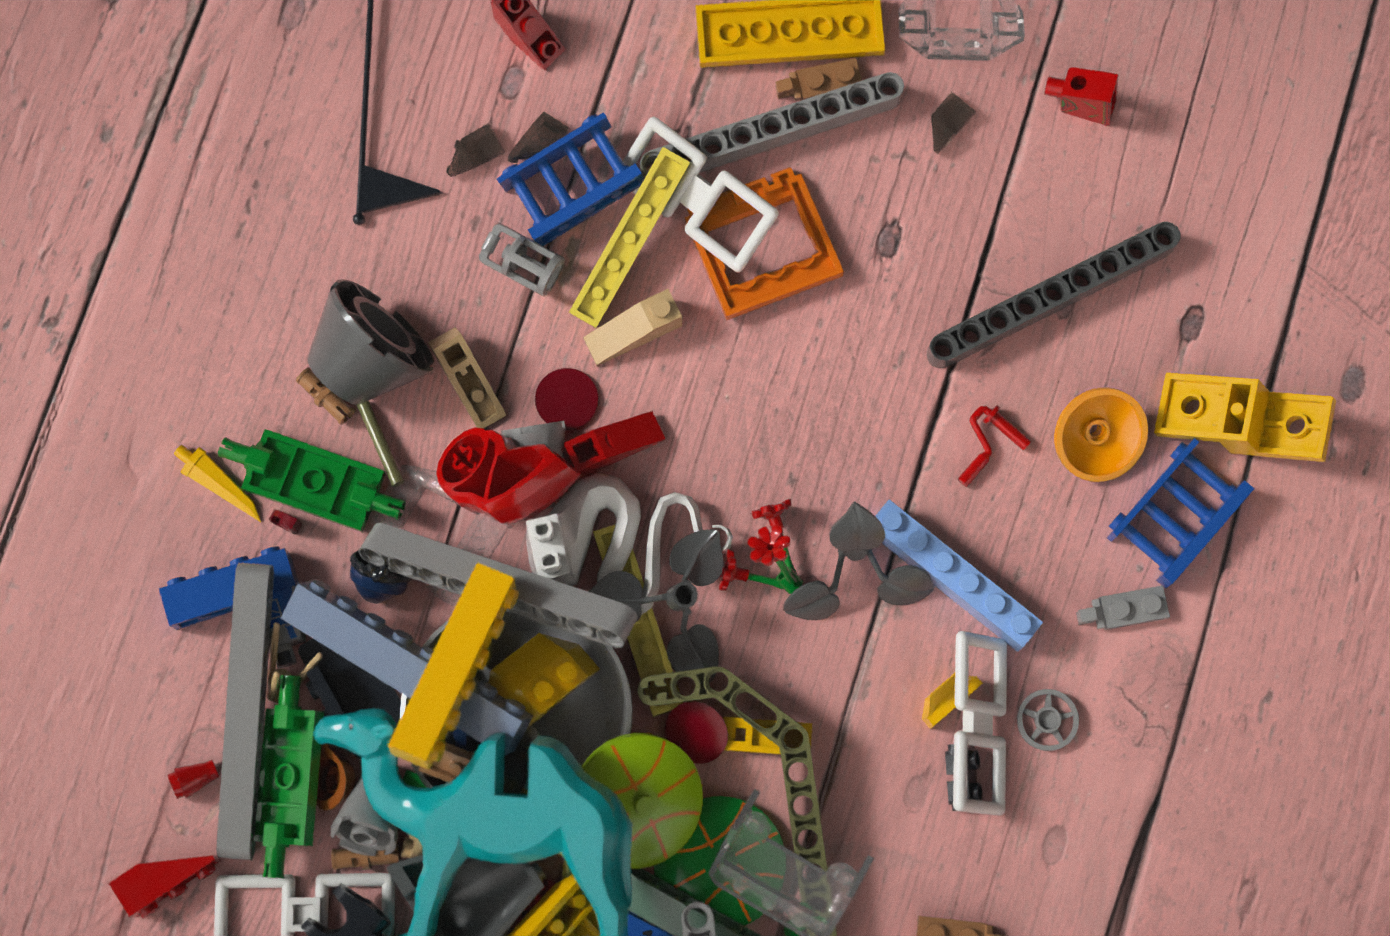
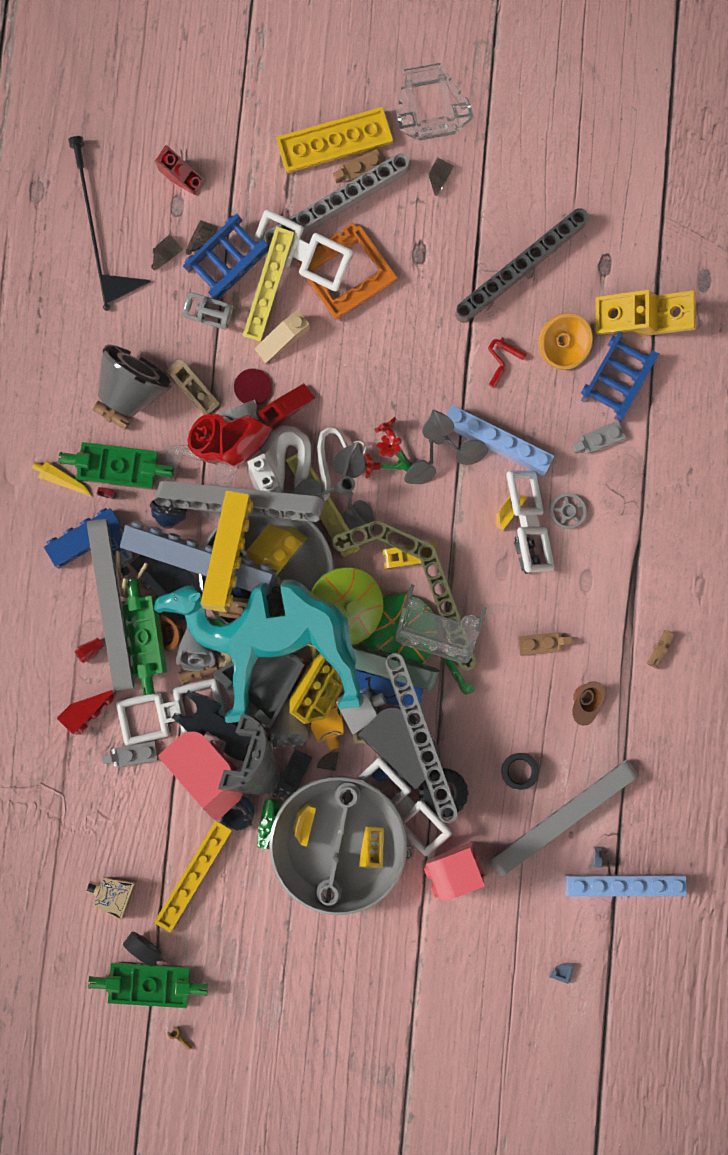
camera: 15 degrees left, 5 degrees up
(380, 444) = (150, 435): olive bar -> none
(697, 731) = (371, 560): dark red piece -> none
(1086, 94) = (516, 142): red torso -> none

